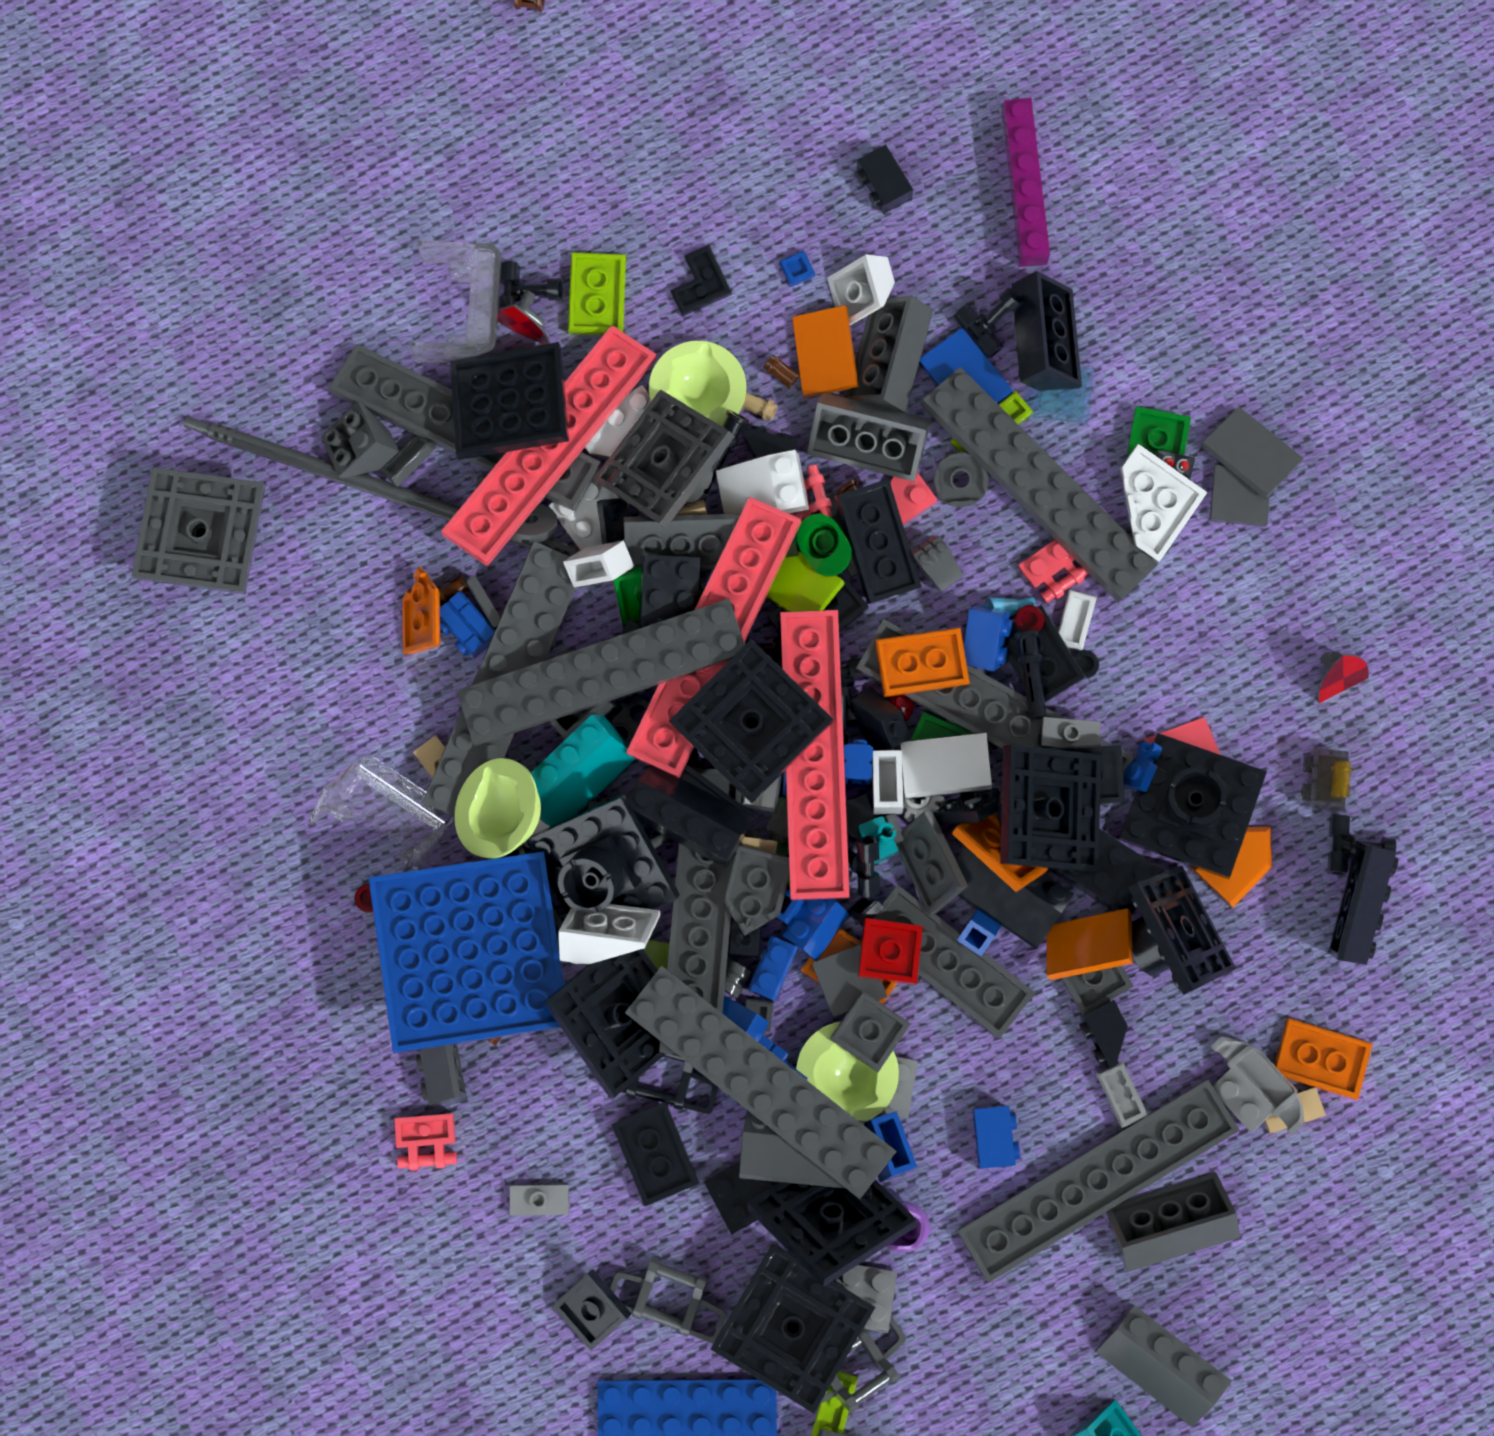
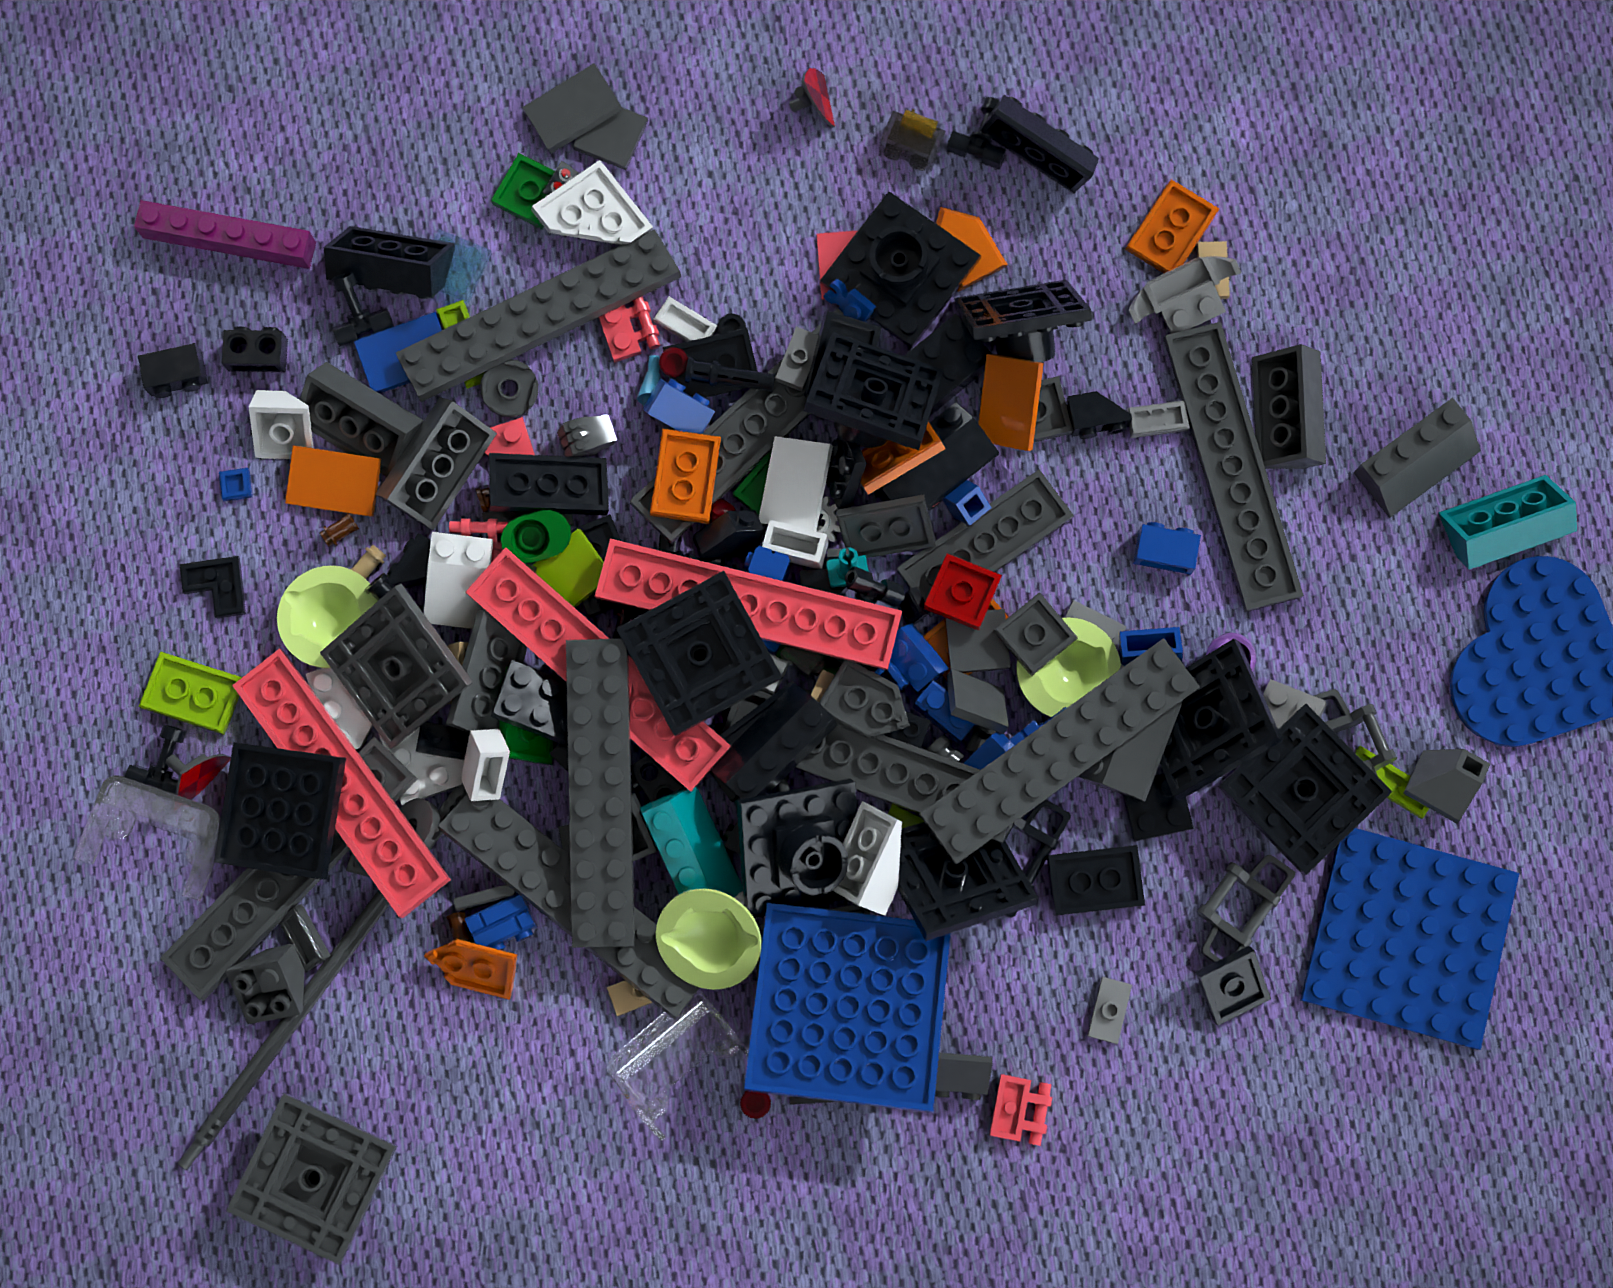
camera: 80 degrees left, 0 degrees up
(789, 994) = (977, 701): none -> dark grey tile
(919, 245) = (253, 357): none -> black brick

